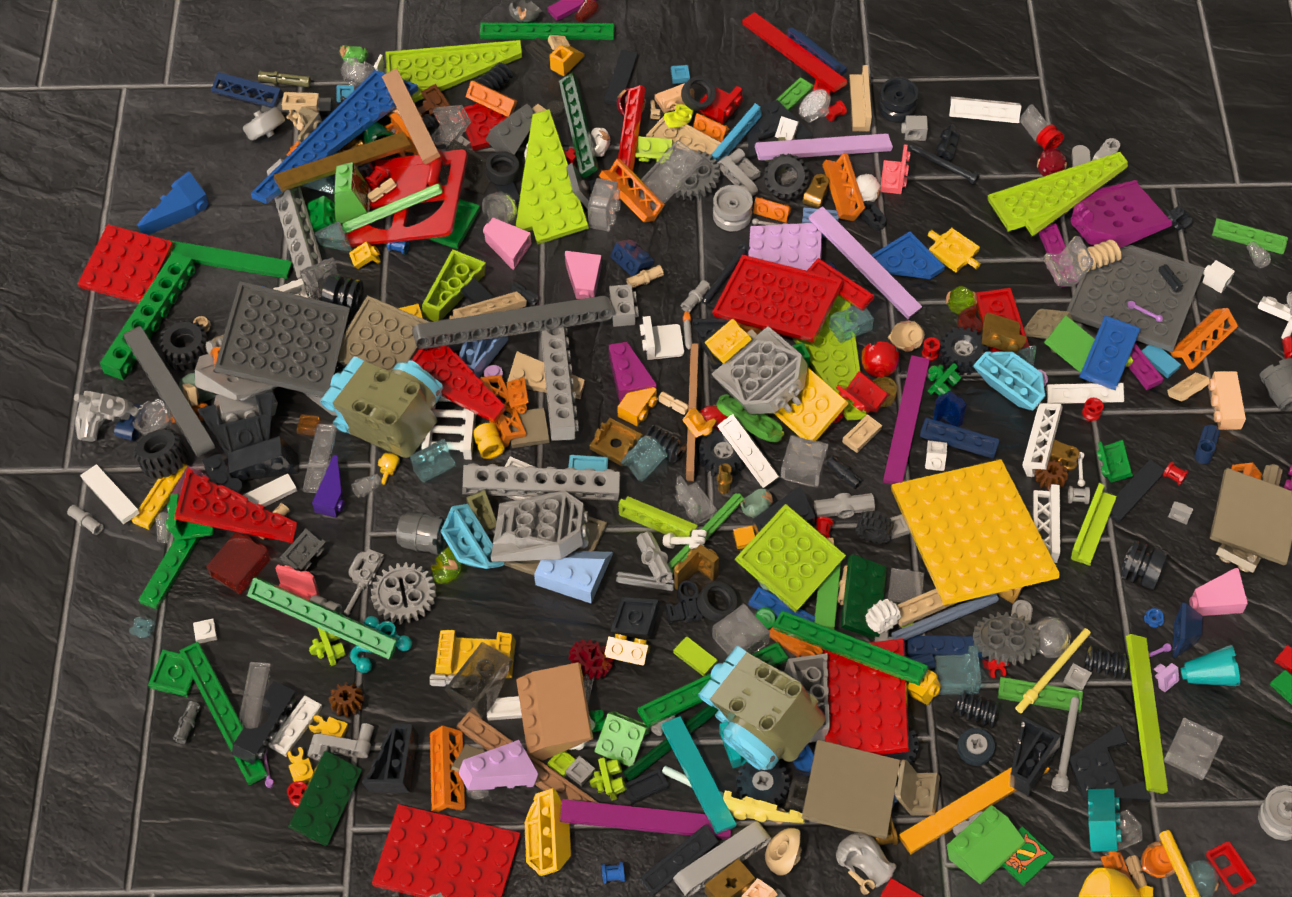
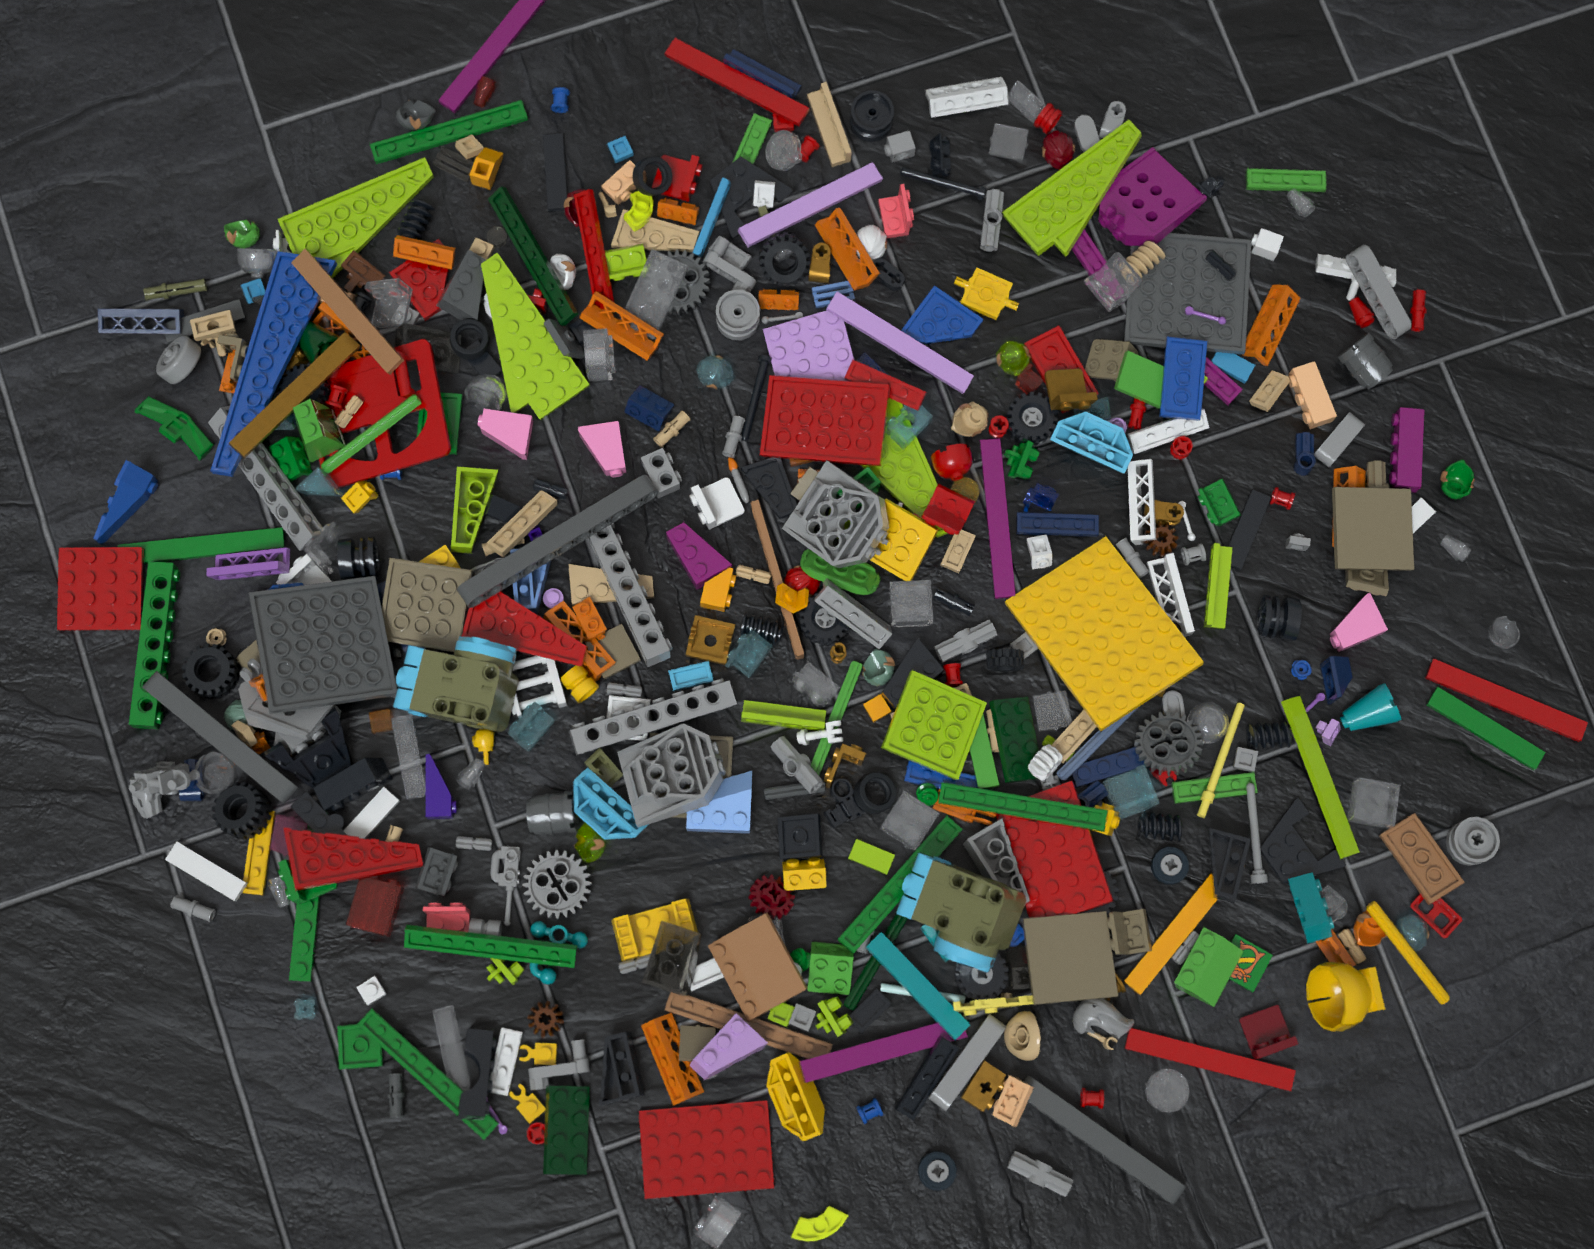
camera: 25 degrees left, 20 degrees up
(239, 166) = (176, 426): none -> green plate
(254, 275) = (251, 569): none -> medium lavender fence
(341, 539) = (470, 843): none -> light grey piece
(527, 459) = (628, 690): none -> light grey piece
(643, 32) = (560, 100): none -> blue bush
(698, 246) = (715, 372): none -> clear light blue hair
(727, 341) = (790, 490): yellow bracket -> none
(976, 198) = (990, 230): none -> light grey piece
(1010, 150) = (1008, 142): none -> clear piece
(1020, 482) = (1132, 558): none -> light grey pin
(1062, 369) = (1138, 408): none -> red pin
(1229, 815) = (1421, 859): none -> medium nougat tile
(1243, 441) = (1339, 439): none -> light grey beam

